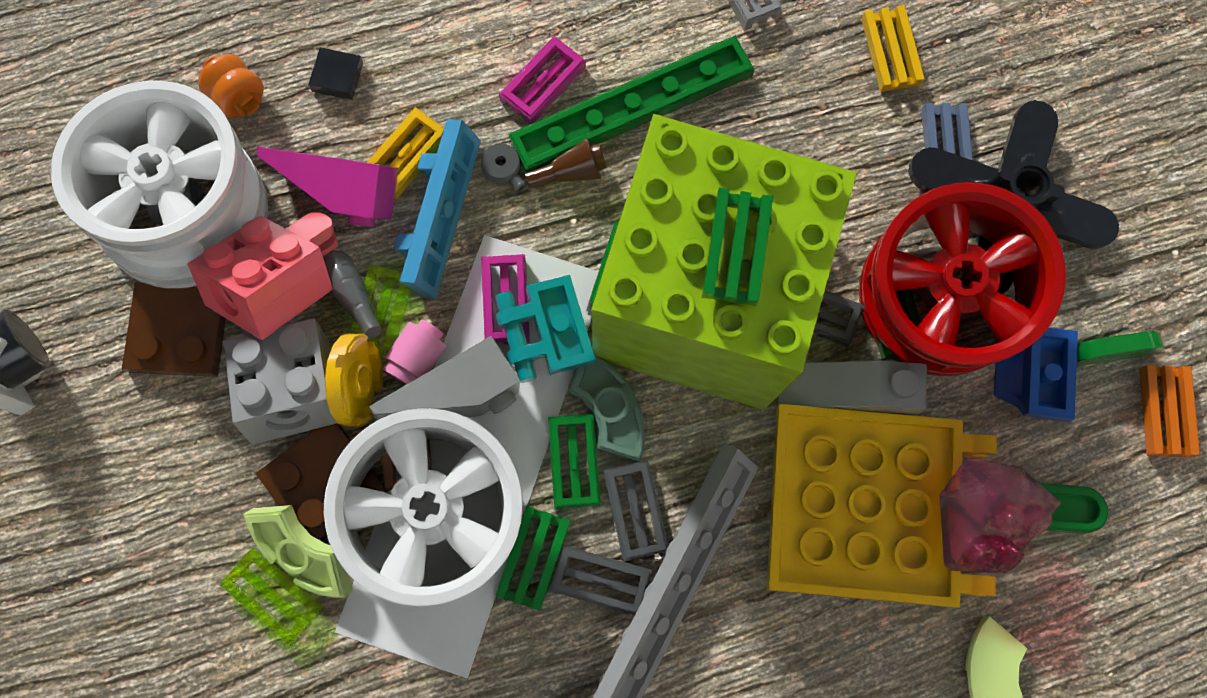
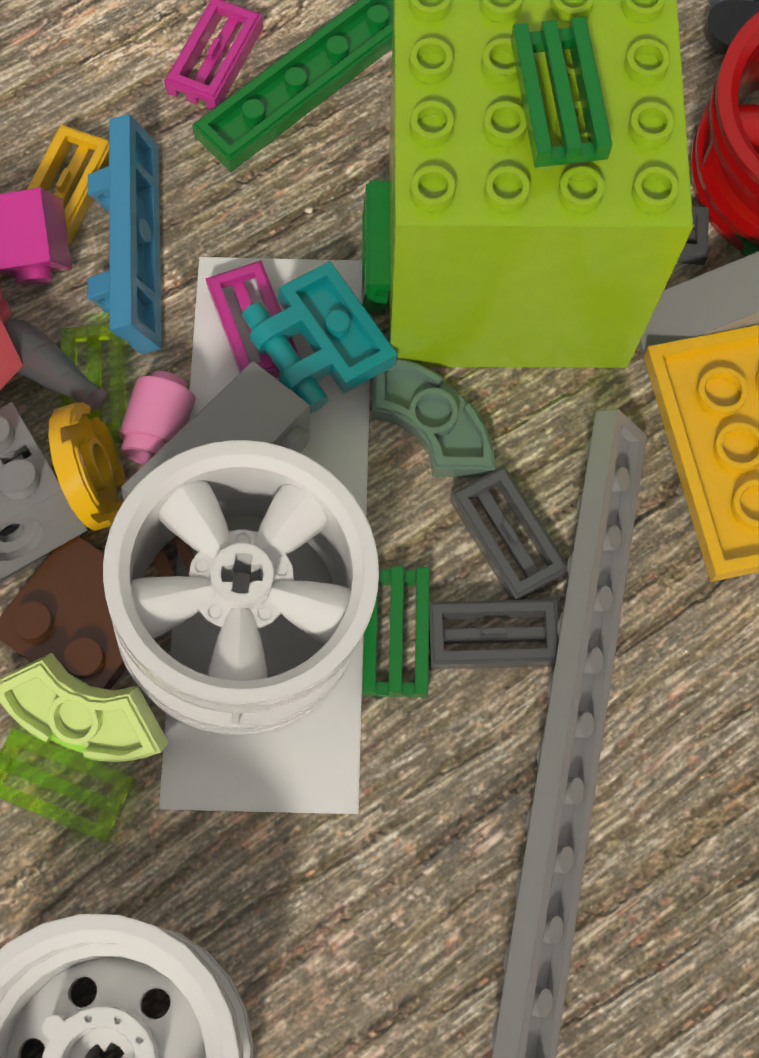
camera: 15 degrees left, 5 degrees down
(506, 173) = (197, 166): dark grey piece -> none
(576, 164) = (294, 135): reddish brown cone -> none
(576, 500) = (427, 543): green tile -> none

